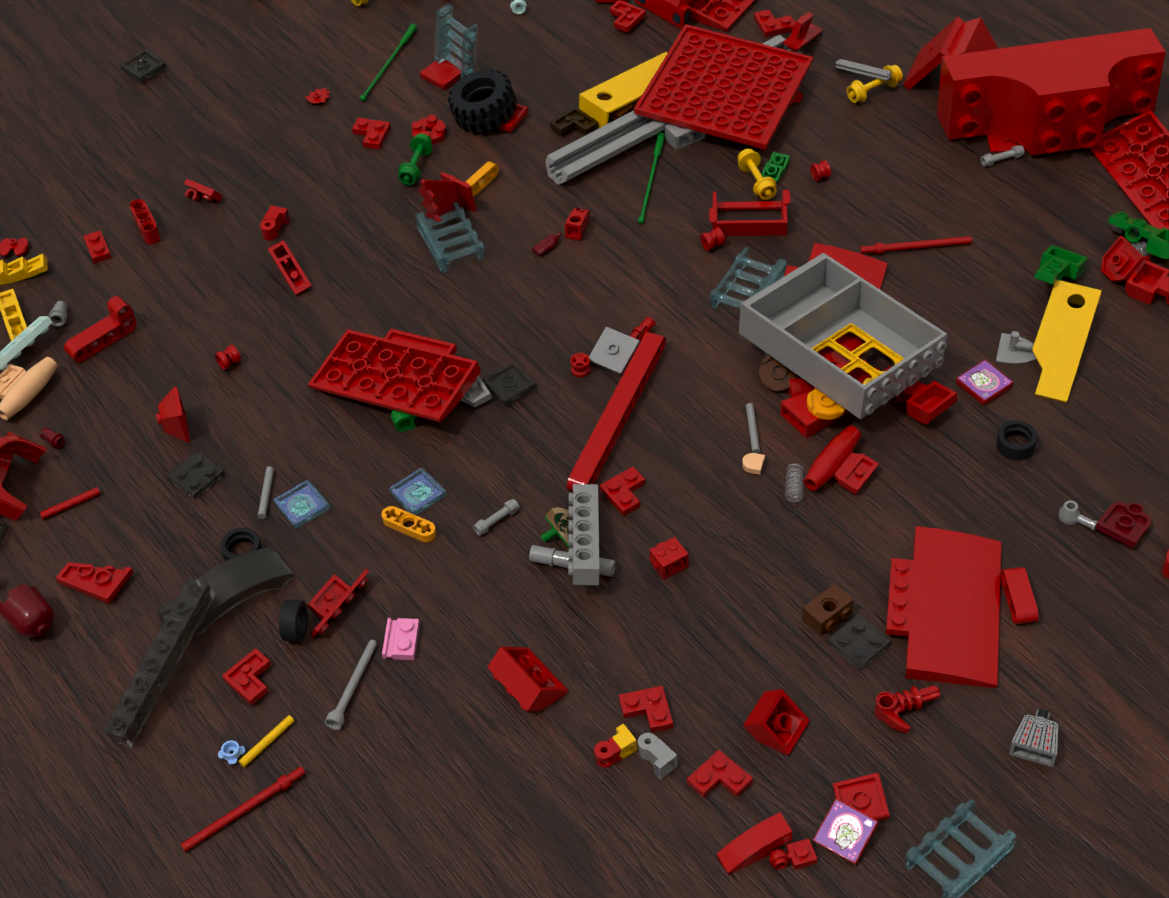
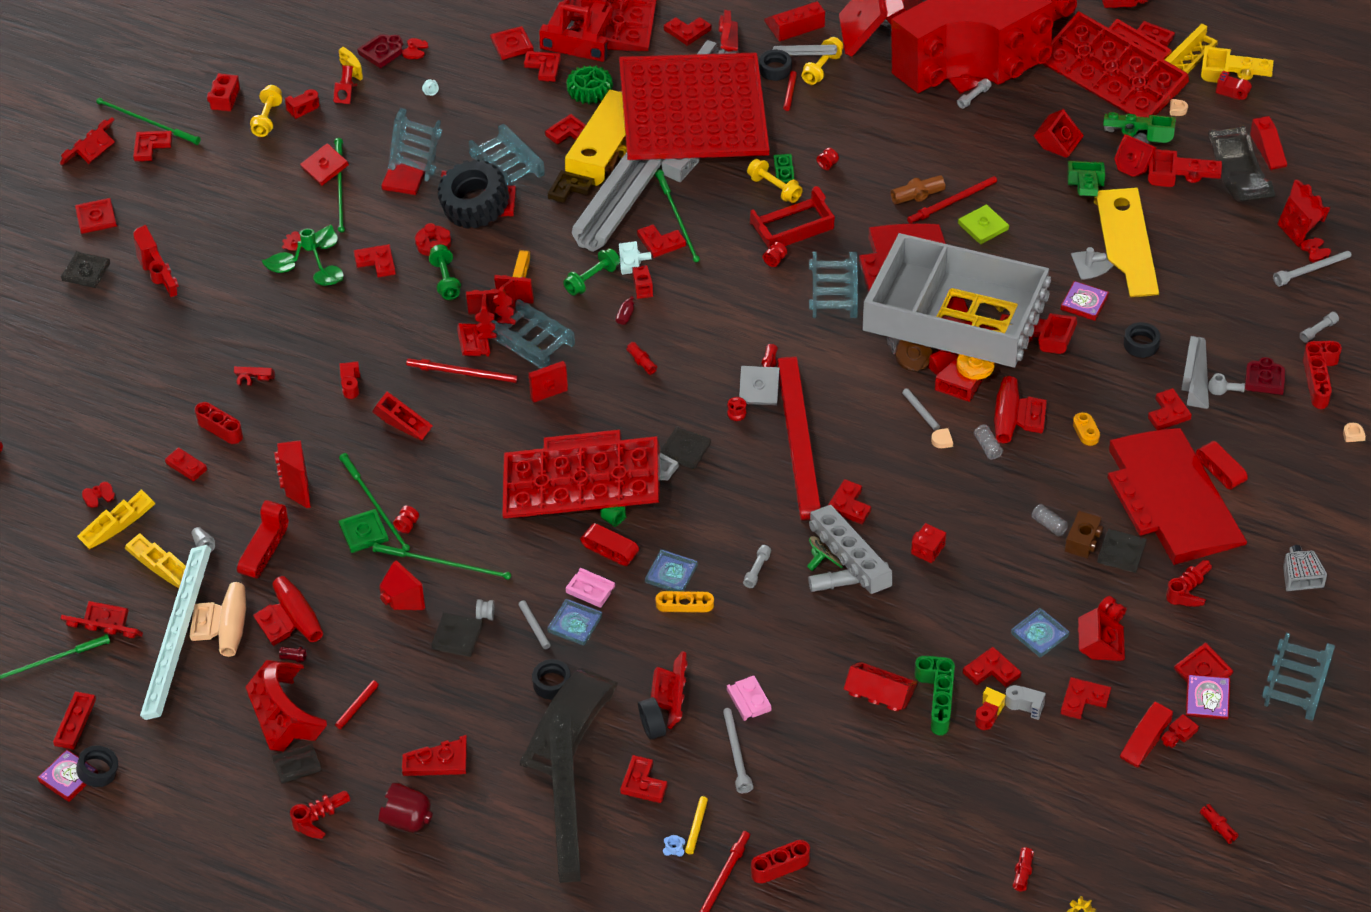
camera: 30 degrees left, 0 degrees up
(75, 403) = (292, 612): none -> red plate
(162, 280) = (293, 472): none -> red slope
(184, 27) = (95, 215): none -> red tile
(188, 372) = (402, 553): none -> green piece
(190, 354) = (363, 530): none -> green tile
(194, 68) = (151, 260): none -> red plate
(219, 305) = (356, 475): none -> green piece
(231, 461) = (485, 609): none -> light grey wheel
(303, 805) = (774, 869): none -> red beam
(319, 96) = (309, 241): none -> green plant
(335, 478) = (590, 587): none -> bright pink plate
(345, 232) = (425, 364): none -> red bar
(380, 445) = (609, 544): none -> red beam
(386, 41) = (324, 164): none -> red plate
(398, 224) = (469, 341): none -> red plate
(410, 203) = (483, 306): none -> red piece
(428, 280) = (548, 381): none -> red plate
(529, 290) = (641, 358): none -> red pin
(550, 74) = (514, 145): none -> clear light blue fence
(560, 194) = (607, 259): none -> green piece
(561, 733) = (941, 674): none -> green beam
(585, 198) = (631, 256): none -> light aqua plate
(603, 73) = (563, 129): none -> red plate
(618, 197) = (660, 244): none -> red plate
(651, 41) = (589, 84): none -> green gear
(720, 691) = (1040, 632): none -> clear light blue tile
(803, 581) = (1049, 520): none -> clear piece
(806, 698) = (1112, 609): none -> red wheel
(829, 101) = (790, 89): none -> red bar
(832, 83) = (775, 73): none -> black tyre
(876, 43) = (797, 21): none -> red slope
(887, 224) = (917, 189): none -> dark orange piece
(903, 502) = (1083, 425): none -> light orange plate
(931, 277) = (983, 224): none -> lime plate
(1003, 524) = (1172, 410): none -> red plate
(1053, 492) = (1195, 374): none -> light grey wedge
(1060, 218) = (1058, 134): none -> red slope

